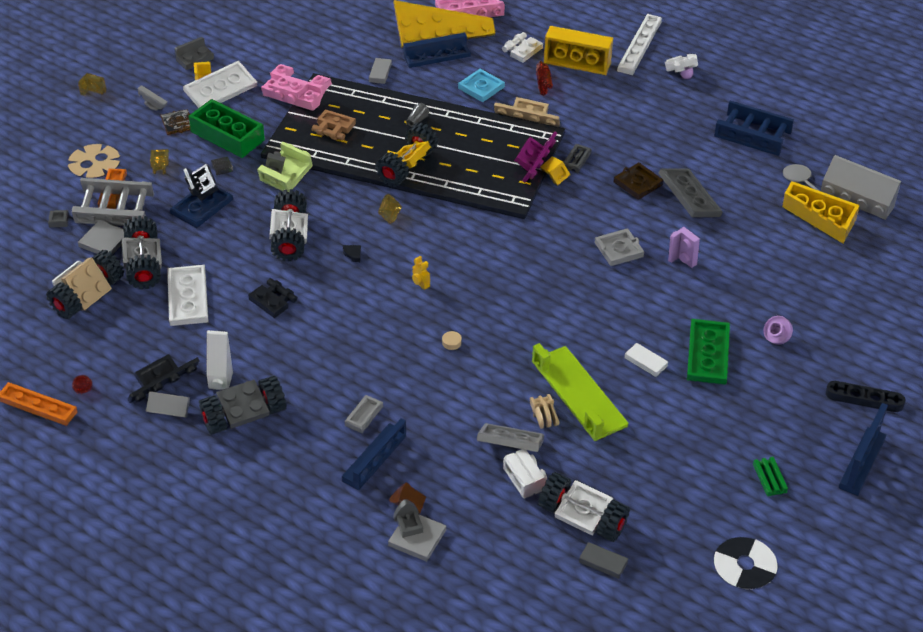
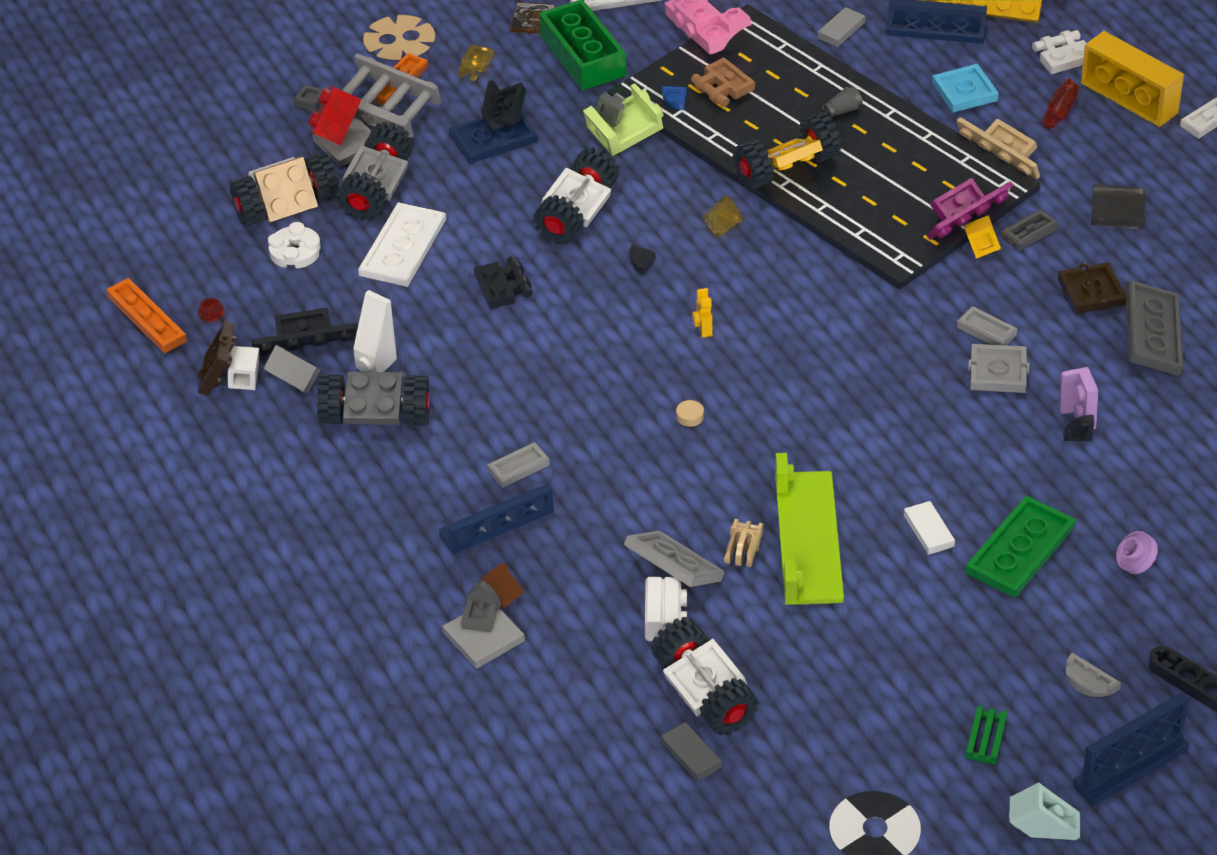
camera: 30 degrees right, 0 degrees up
(89, 222) = (334, 114): none -> red bracket
(112, 416) = (216, 358): none -> dark brown plate
(113, 312) = (296, 234): none -> white plate
(133, 415) = (243, 368): none -> white brick
(222, 165) = (550, 92): clear smoke tile -> none
(307, 143) = (674, 96): none -> blue tile
(593, 225) = (986, 327): none -> light grey tile
(617, 128) = (1118, 206): none -> clear smoke tile
(692, 267) = (1079, 429): none -> black tile
(800, 417) = (1089, 679): none -> light grey tile
(839, 512) = (1044, 814): none -> light aqua slope

